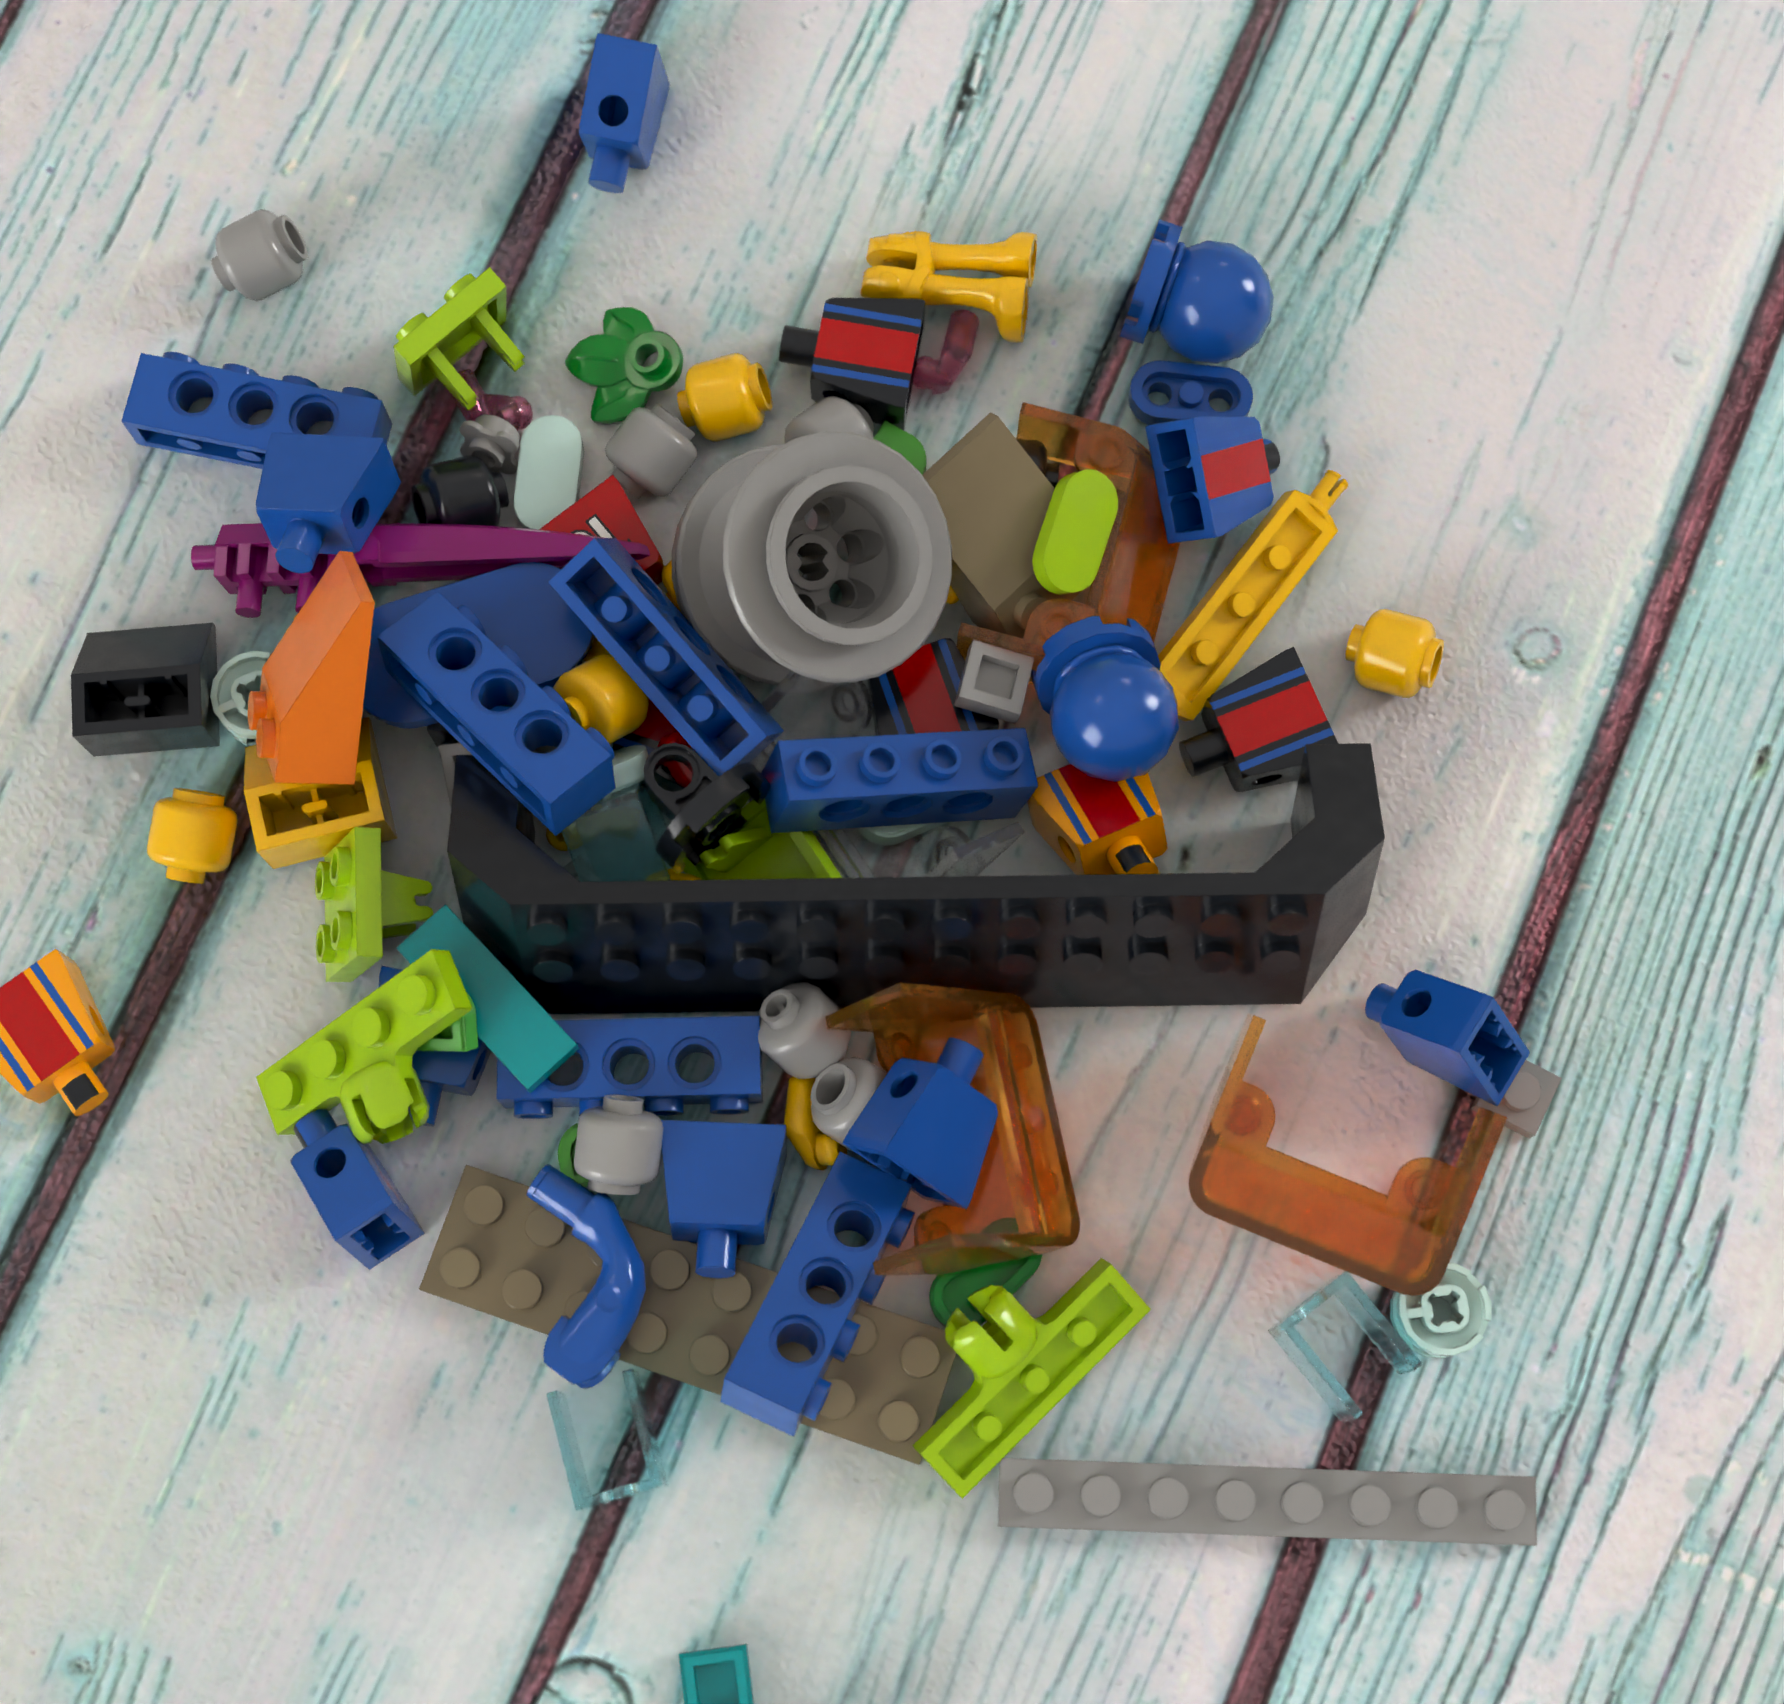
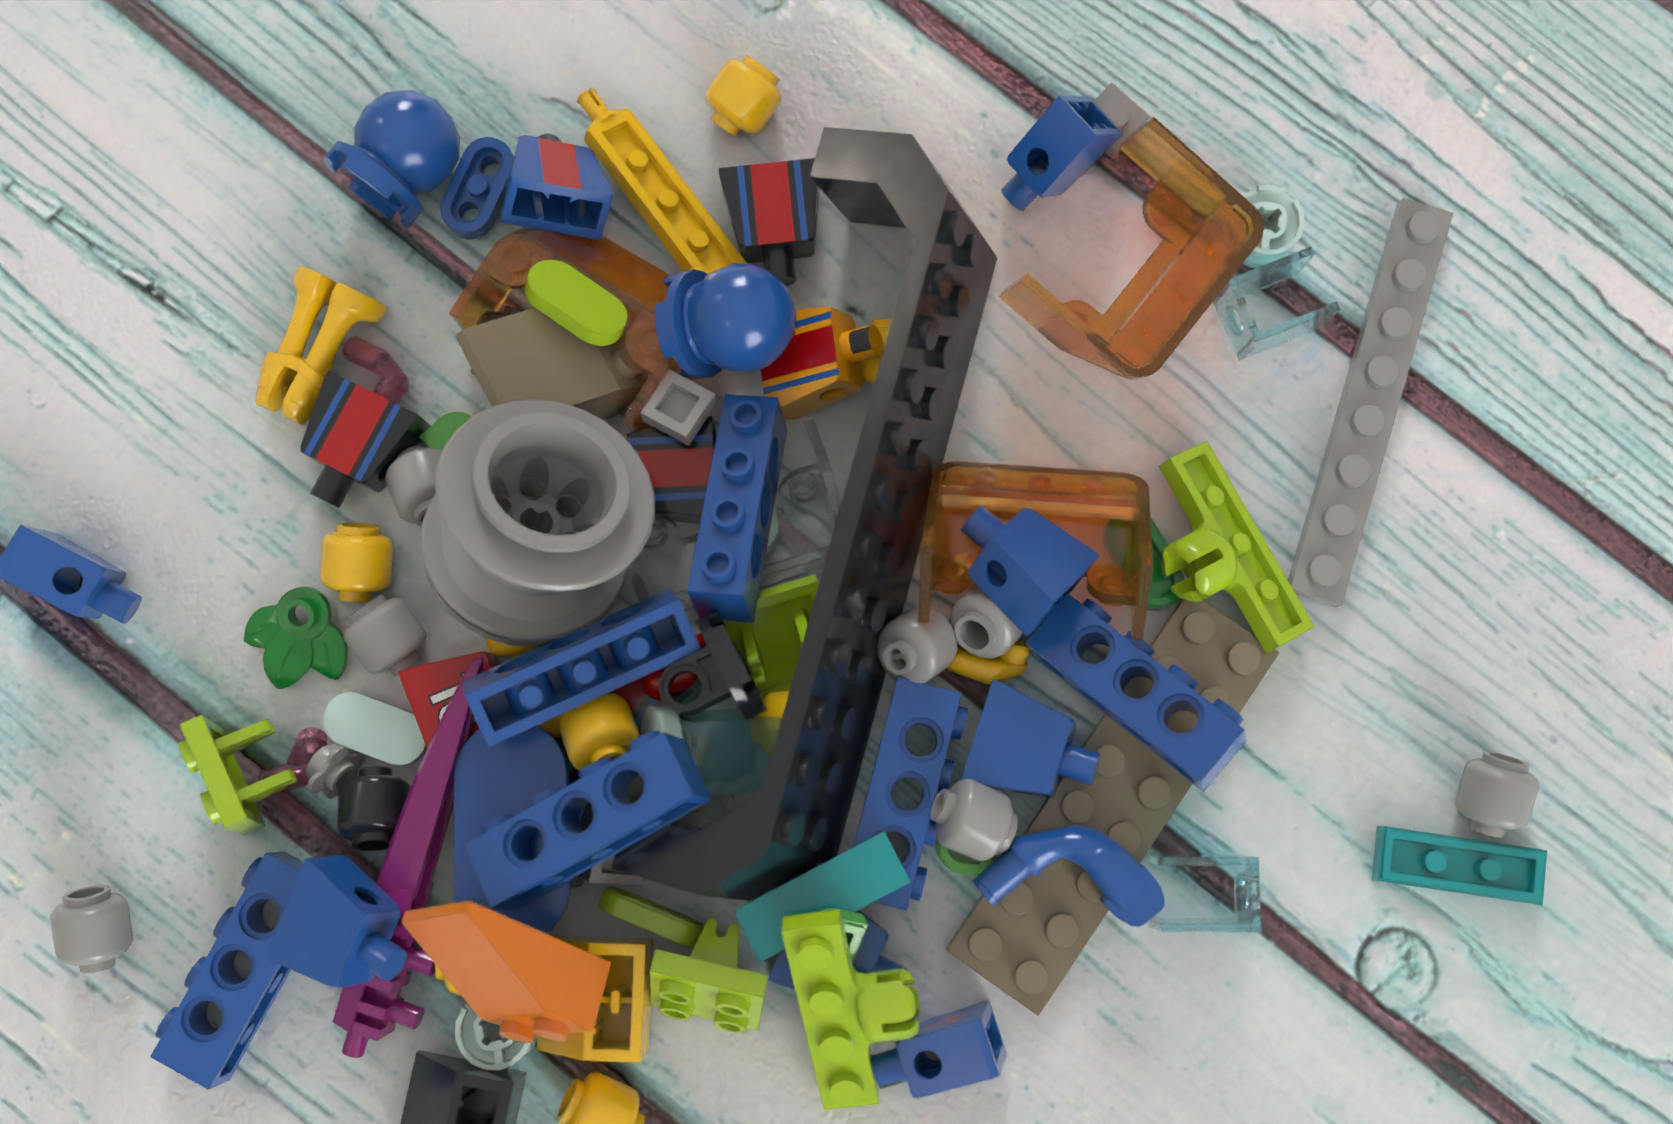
camera: 70 degrees left, 5 degrees up
(420, 822) = (650, 916): none -> lime tile

